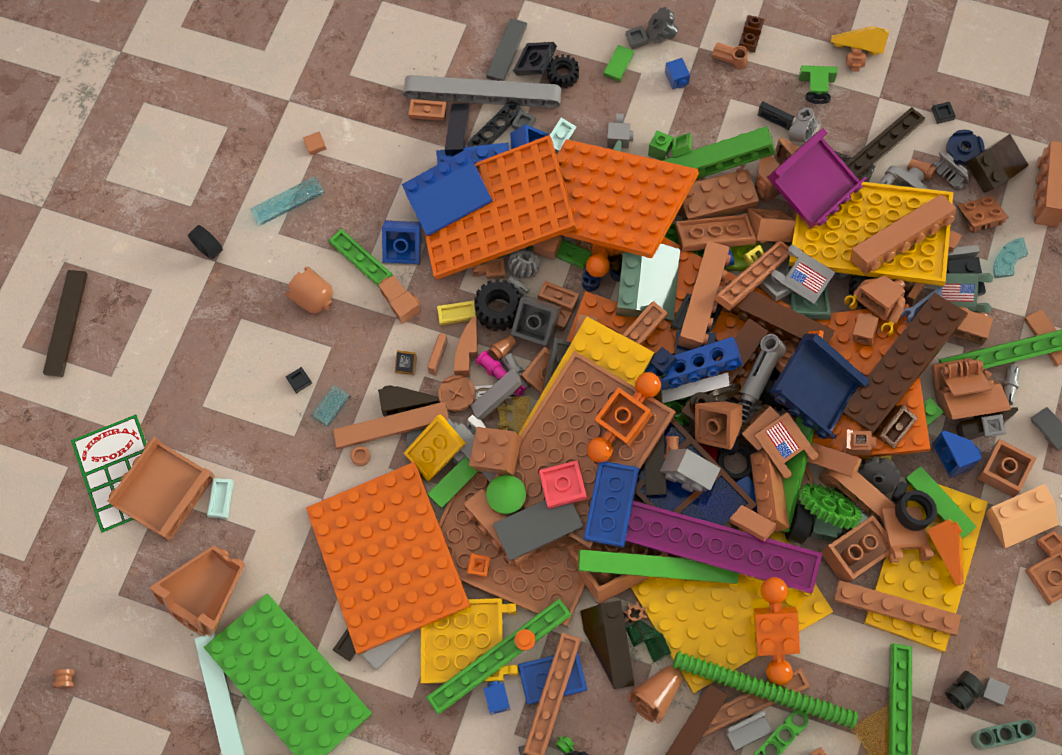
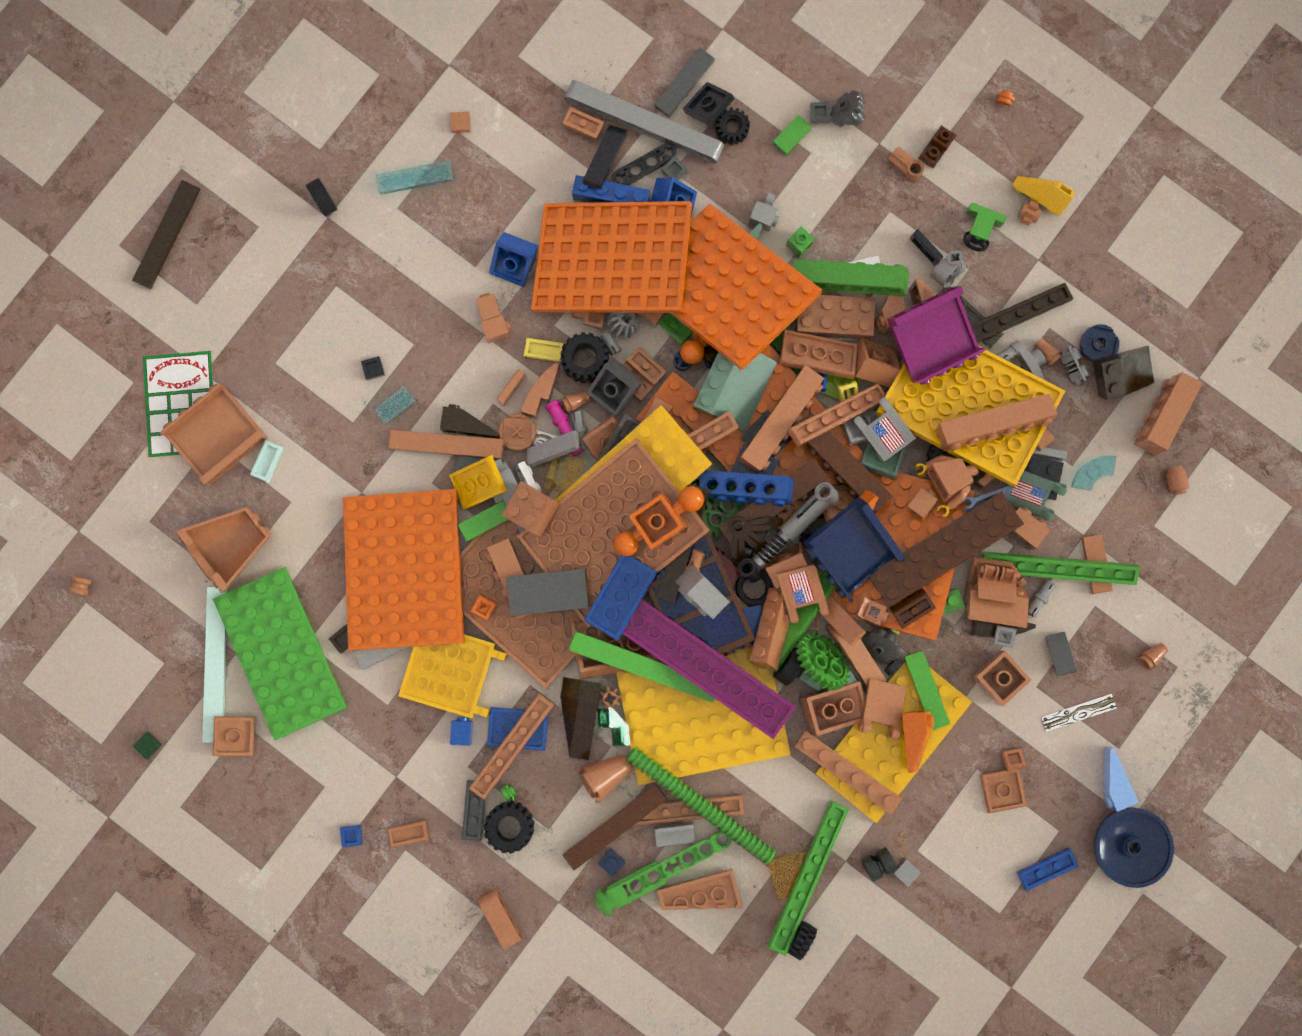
camera: 10 degrees right, 15 degrees up
(310, 291) = (408, 284): nougat cylinder -> none
(359, 257) = (468, 261): bright green tile -> none
(360, 455) = (408, 463): nougat tile -> none
(405, 362) = (478, 385): slope -> none
(447, 192) = (571, 226): blue slope -> none
(496, 658) = (475, 696): bright green tile -> none
(506, 494) = (528, 552): bright green dish -> none
(524, 639) = (501, 691): orange plate -> none
(561, 132) = (707, 194): light aqua plate -> none
(562, 484) = (582, 562): coral tile -> none
(663, 361) = (717, 474): dark blue plate -> none
(677, 73) = (845, 168): blue brick -> none
(682, 144) = (820, 249): bright green tile -> none
(691, 388) = (737, 509): white sticker -> none
(717, 423) = (747, 552): nougat slope -> none
(753, 523) = (743, 657): nougat tile -> none
(776, 631) = (729, 760): orange brick -> none
(925, 501) = (913, 686): black tyre -> none
(943, 112) = (1094, 298): black tile -> none
(956, 453) = (960, 650): blue slope -> none
(983, 213) = (1087, 418): nougat hinge -> none
(1012, 730) = (906, 916): sand green beam -> none
(1023, 516) = (998, 726): light nougat slope -> none

